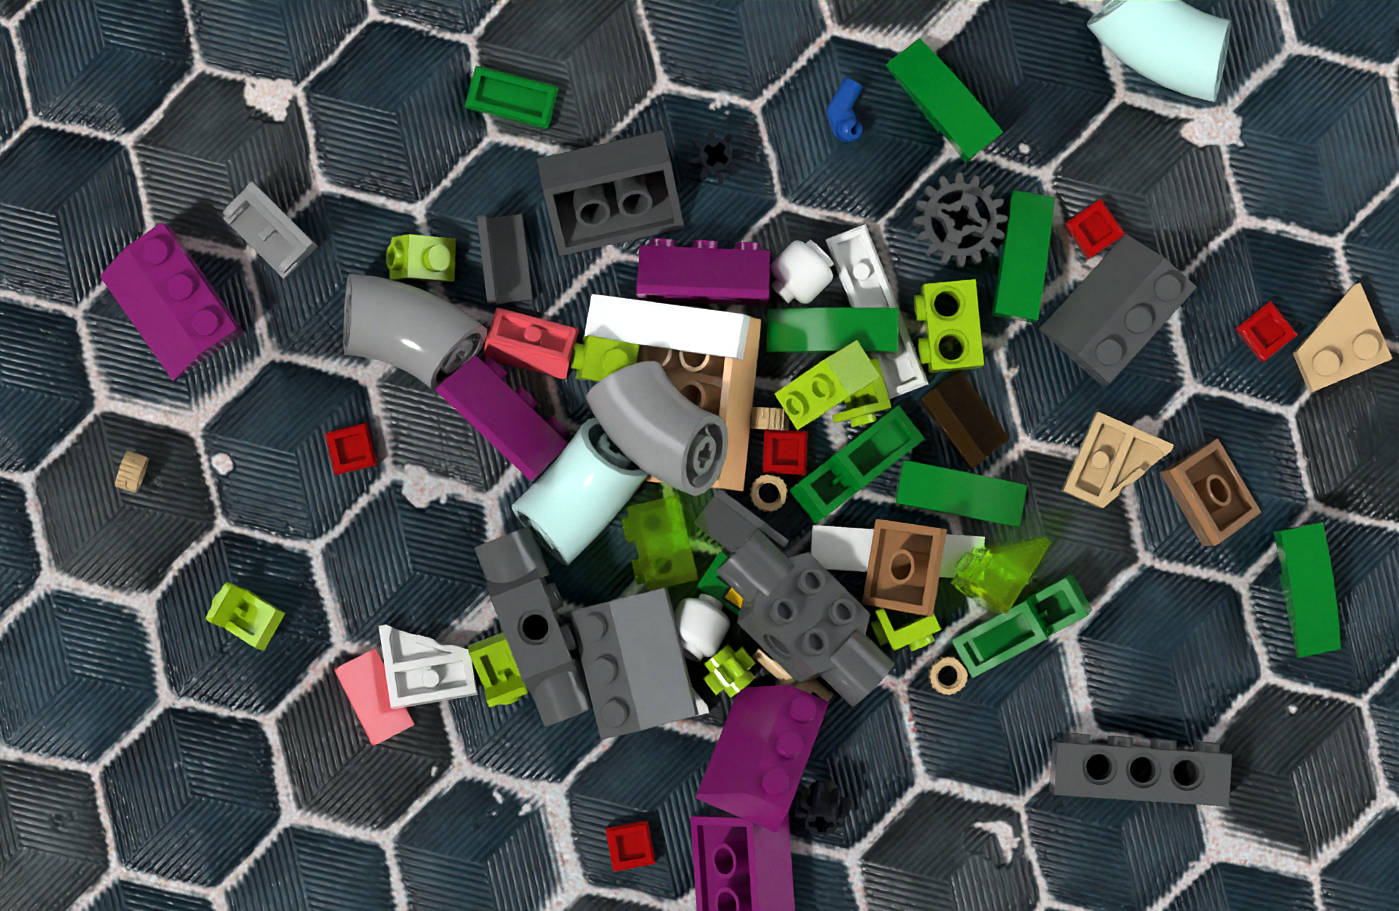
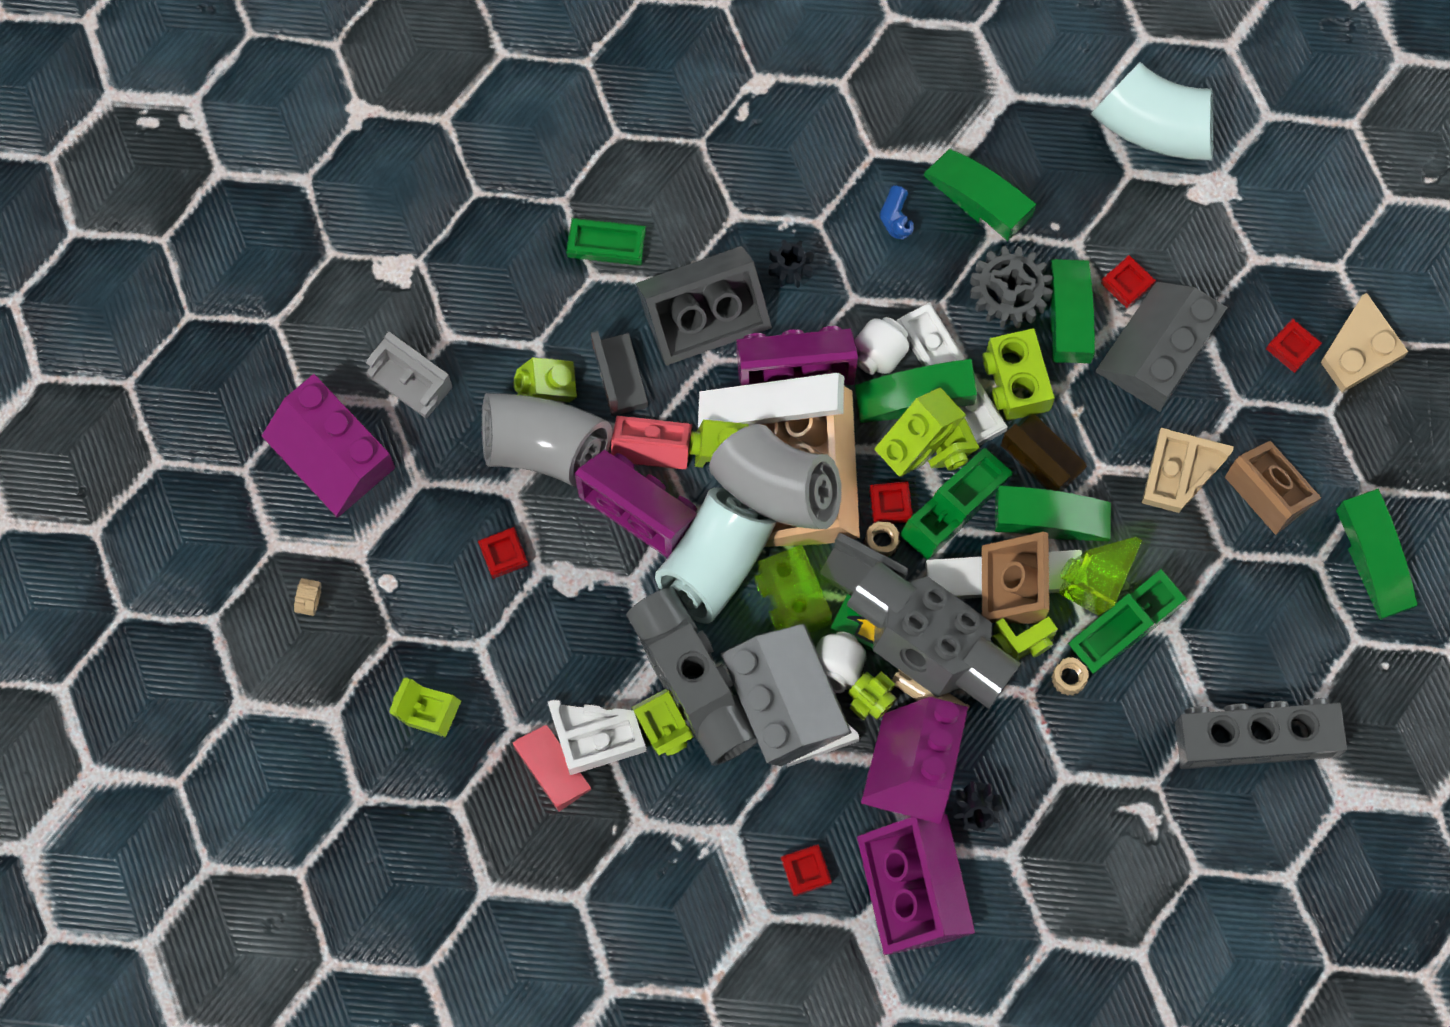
camera: 10 degrees left, 15 degrees down
(769, 418) = (873, 473): tan axle -> none

